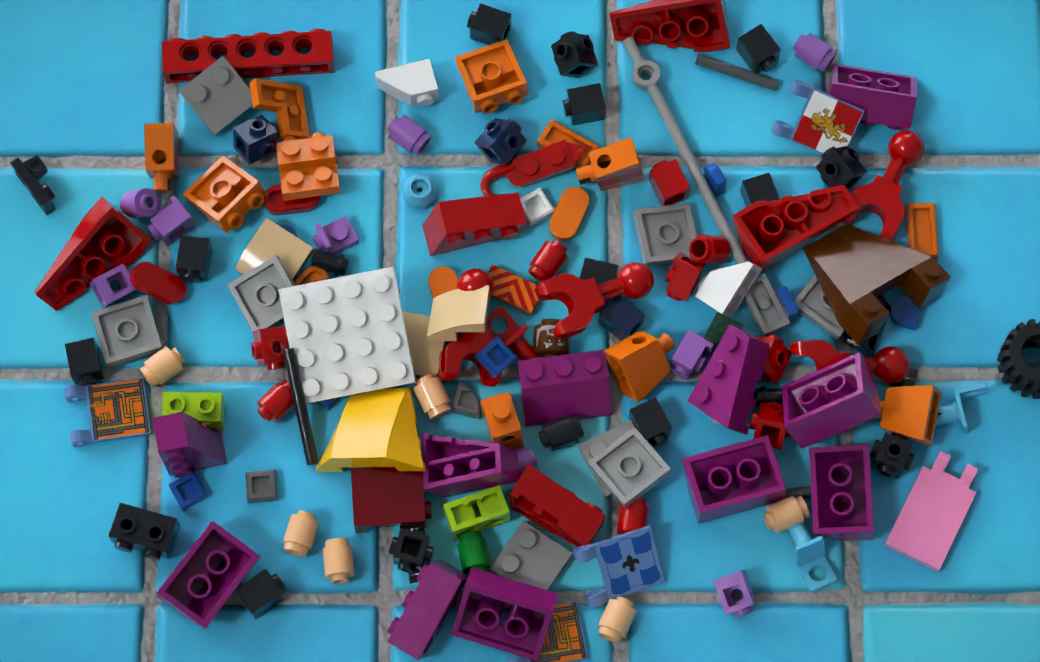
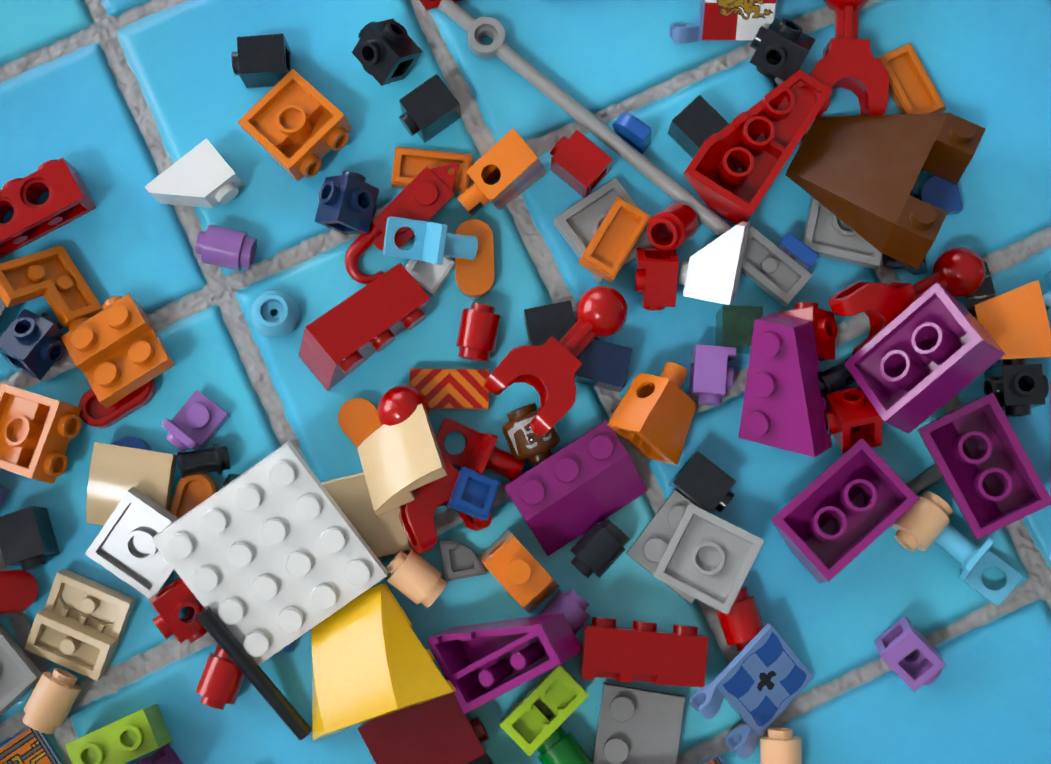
camera: 25 degrees left, 10 degrees up
(201, 329) = (80, 624): none -> tan slope
(544, 187) = (430, 241): none -> medium azure bracket
(666, 241) = (614, 239): none -> orange tile

